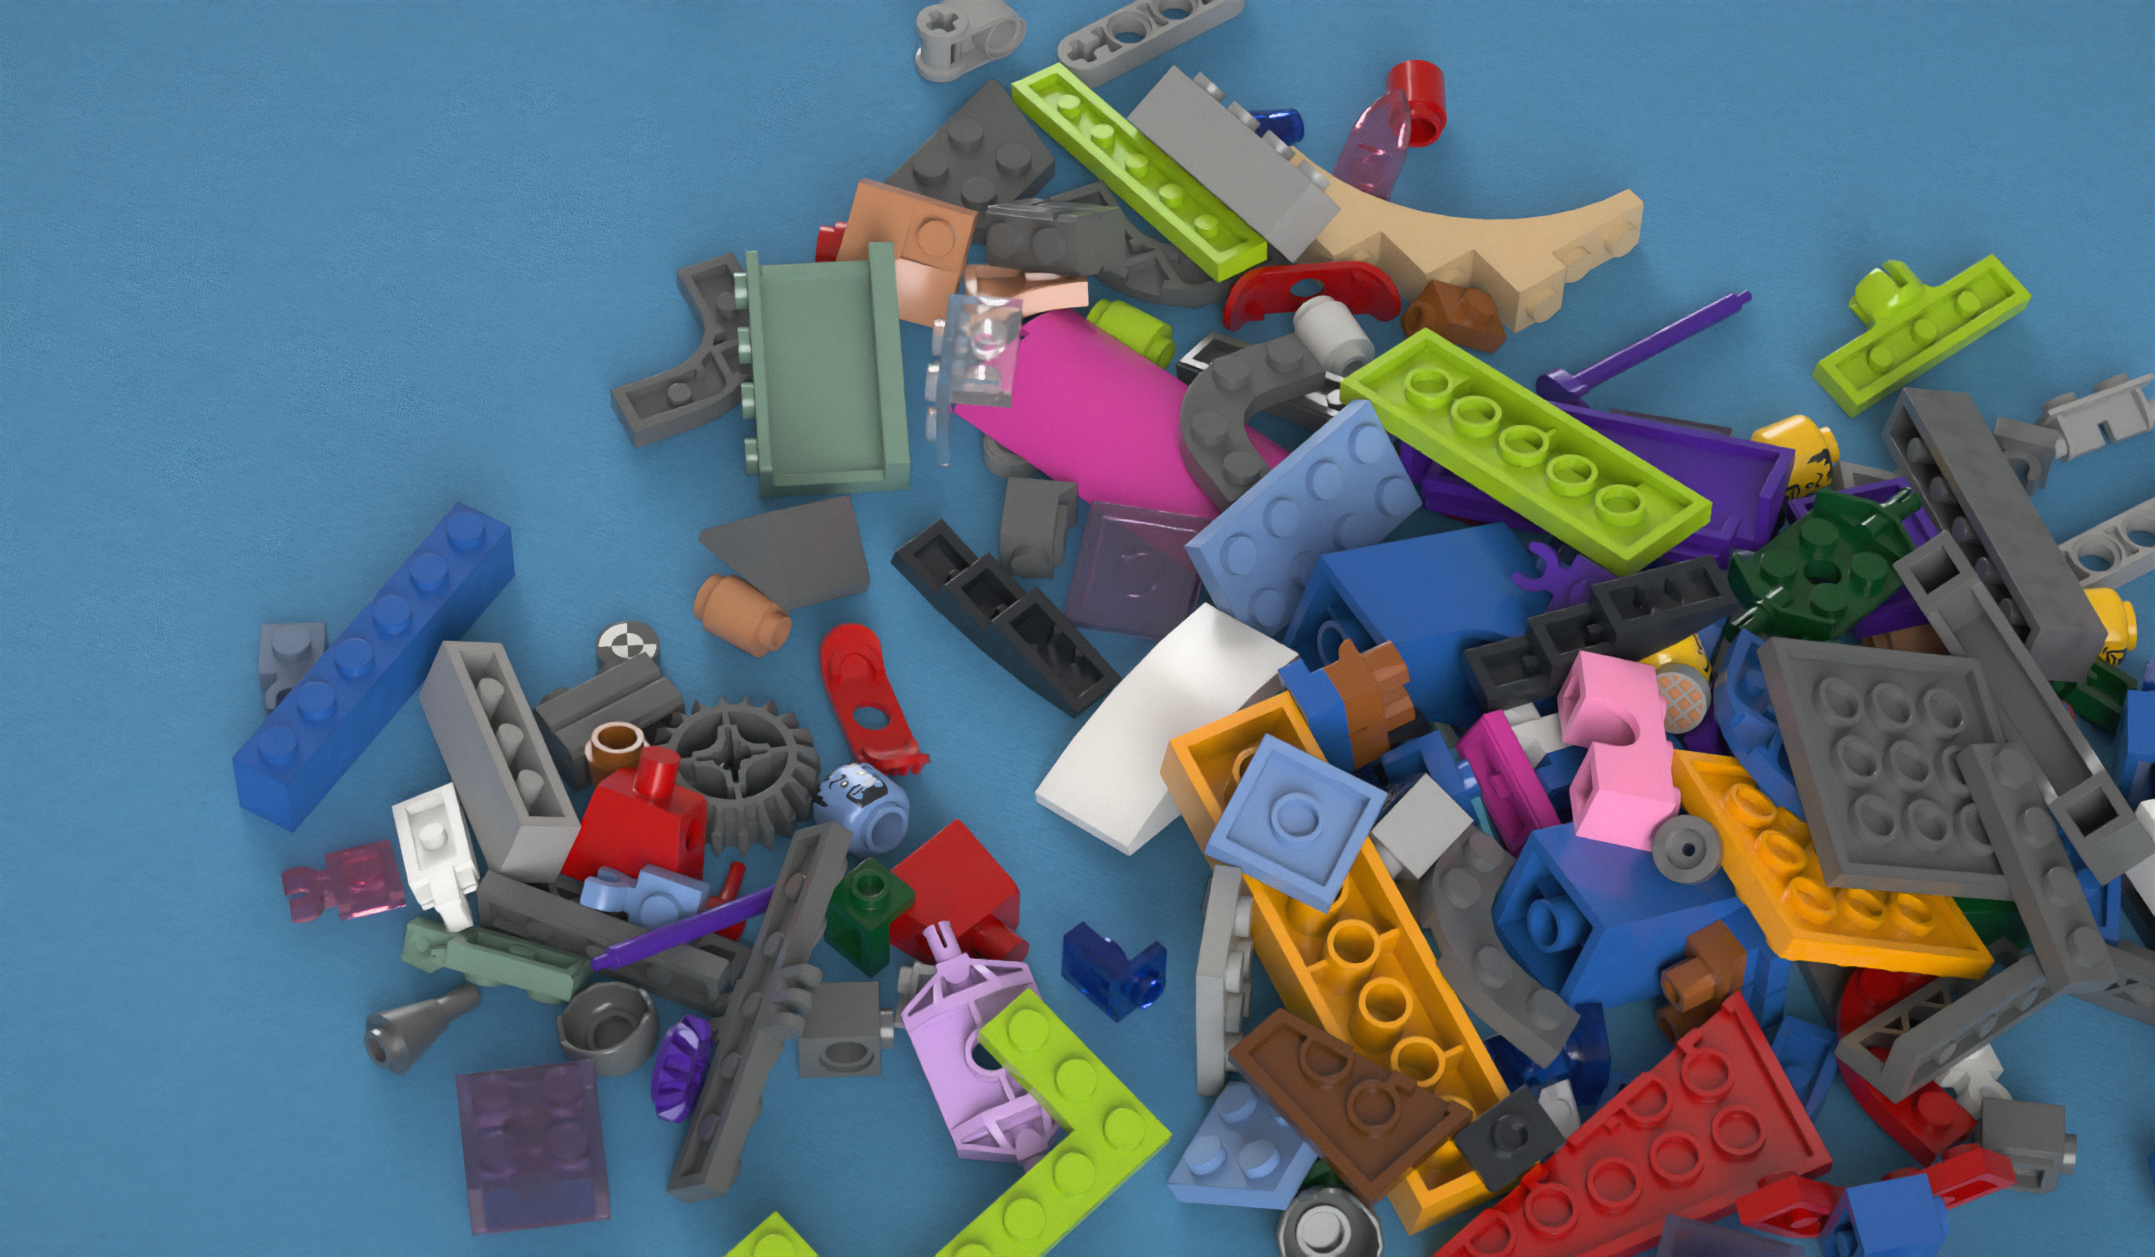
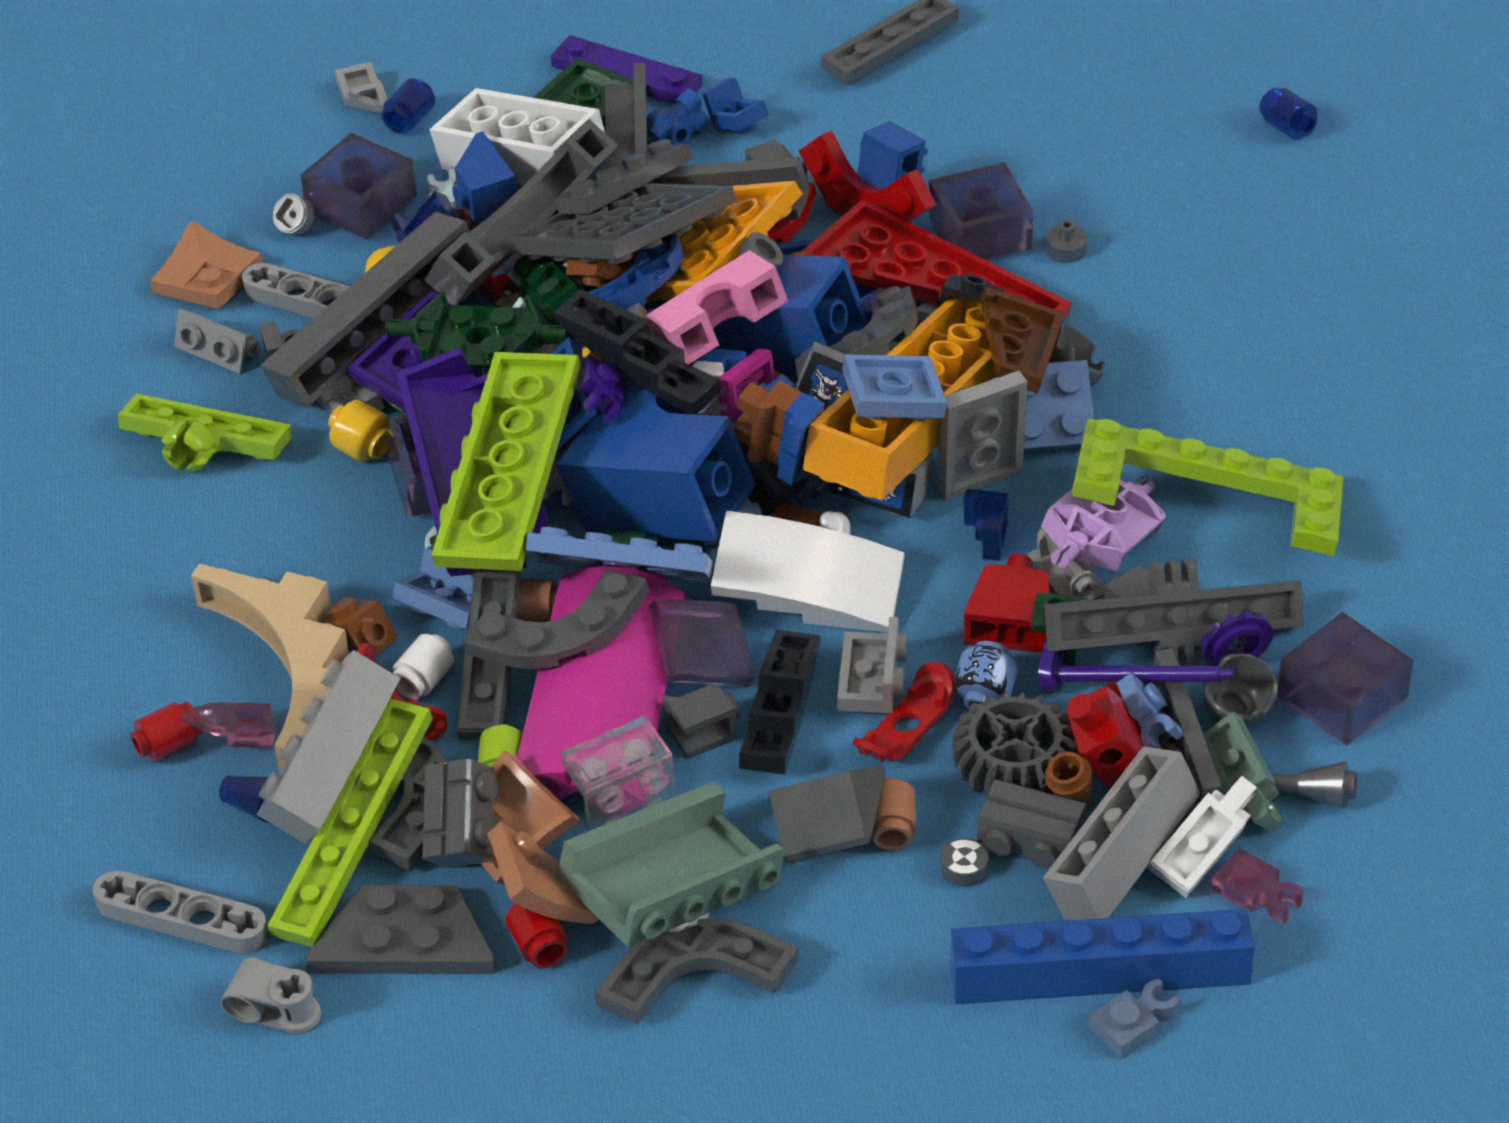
camera: 120 degrees left, 5 degrees down
(971, 717) = (870, 670): none -> light grey bracket
(1564, 388) = (379, 553): dark purple piece -> none

